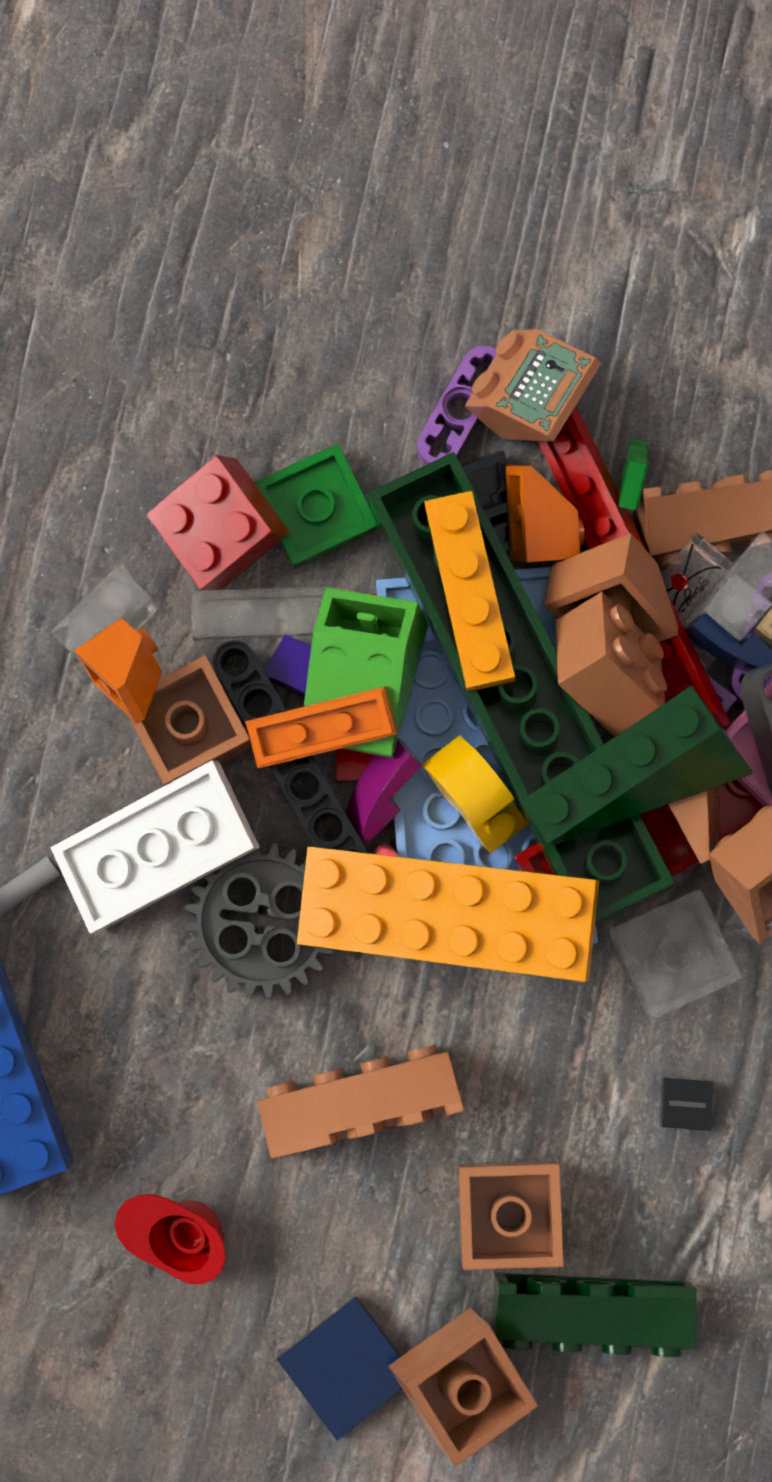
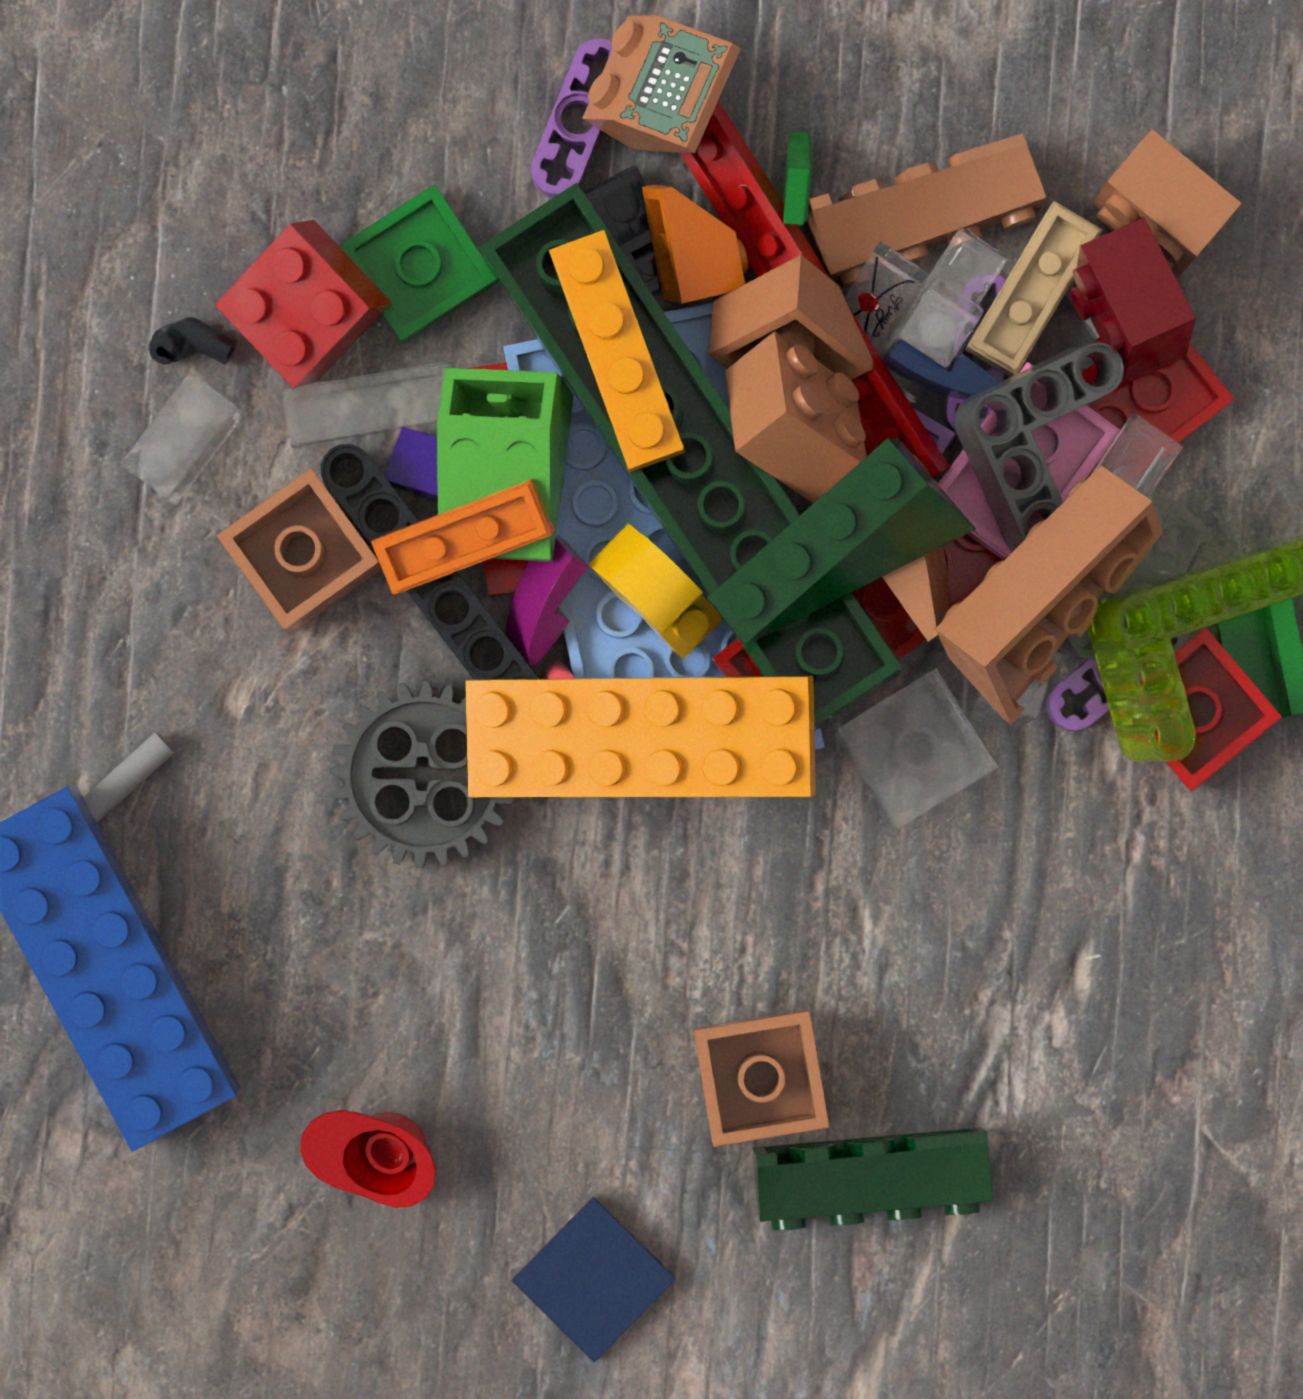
camera: 15 degrees left, 5 degrees up
(122, 541) = (188, 338): none -> black arm
(123, 667) = (215, 495): orange slope -> none
(154, 847) = (283, 704): white plate -> none
(359, 1103) = (567, 973): nougat wedge -> none
(463, 1386) = (731, 1279): nougat brick -> none
(686, 1104) = (952, 922): black tile -> none

